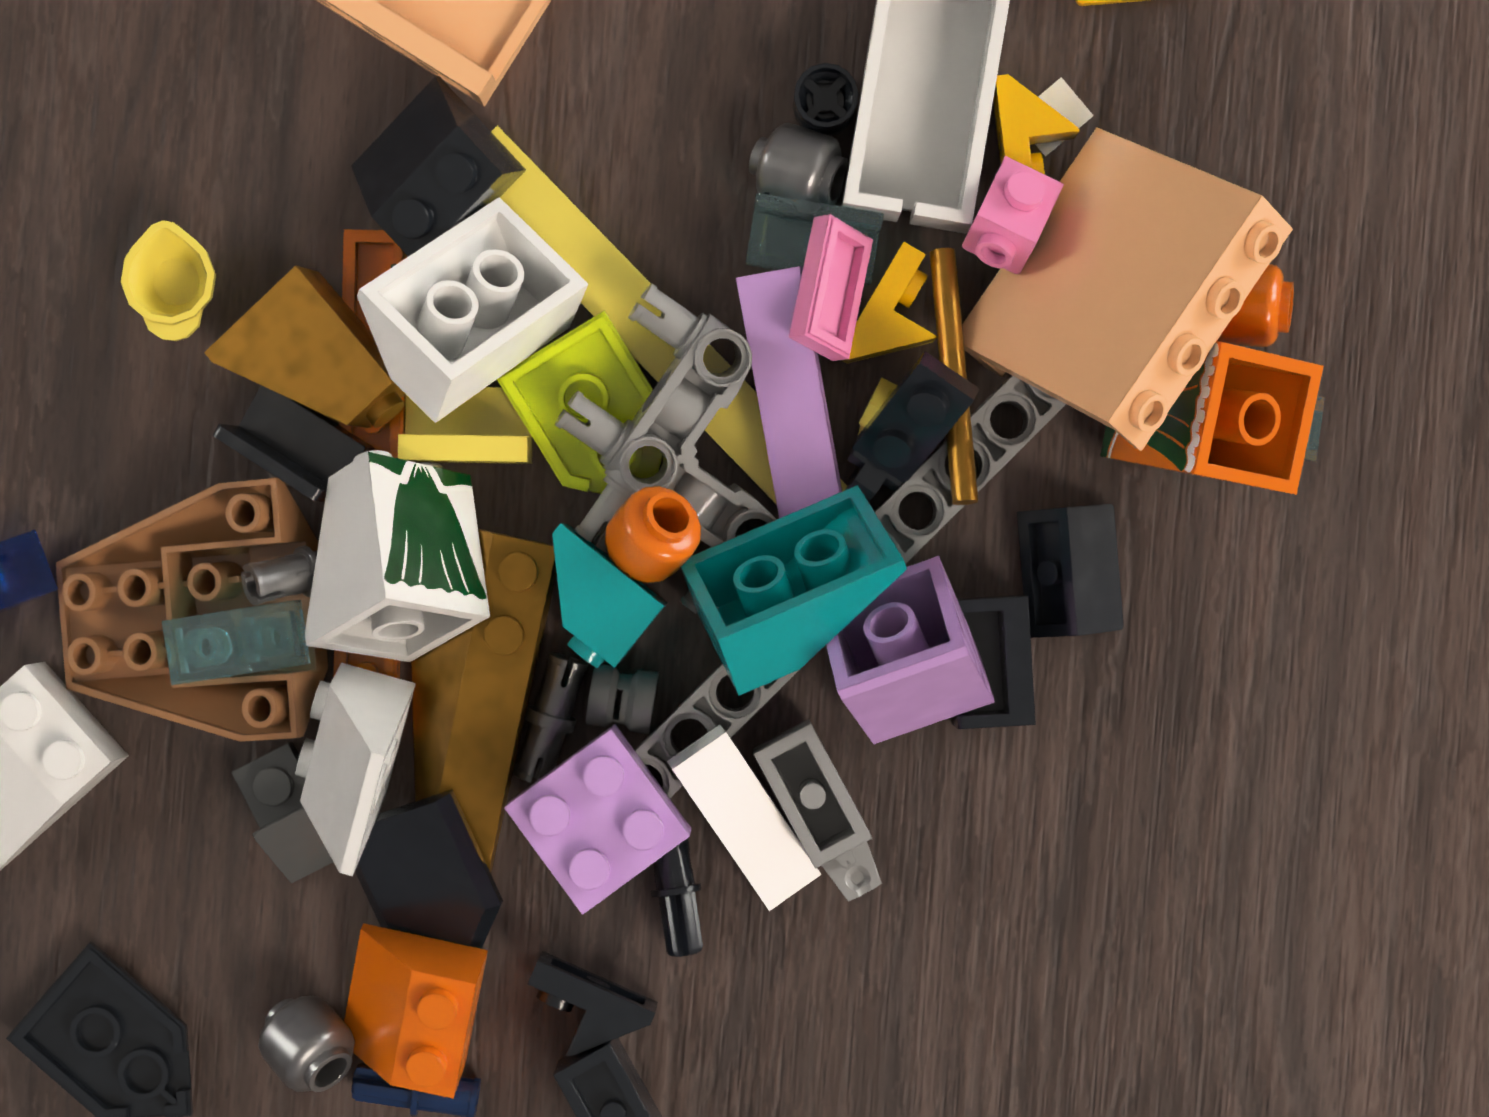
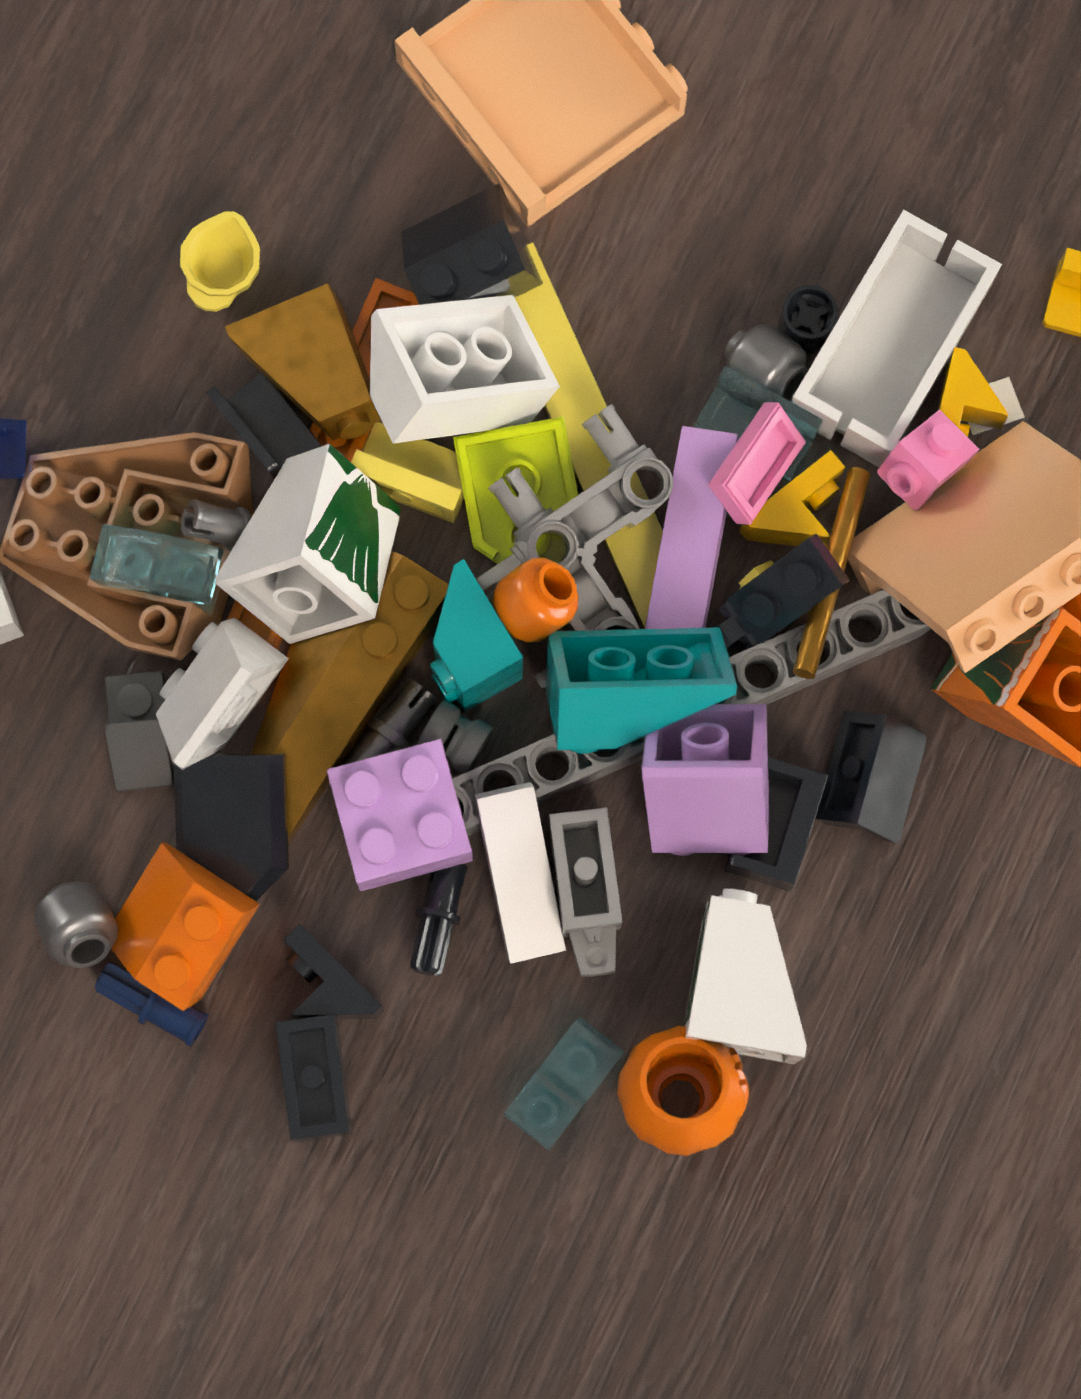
camera: 20 degrees right, 10 degrees down
(870, 1009) = (563, 1083): none -> clear light blue slope
(1016, 855) = (742, 982): none -> white slope
(1038, 969) = (712, 1071): none -> orange piece

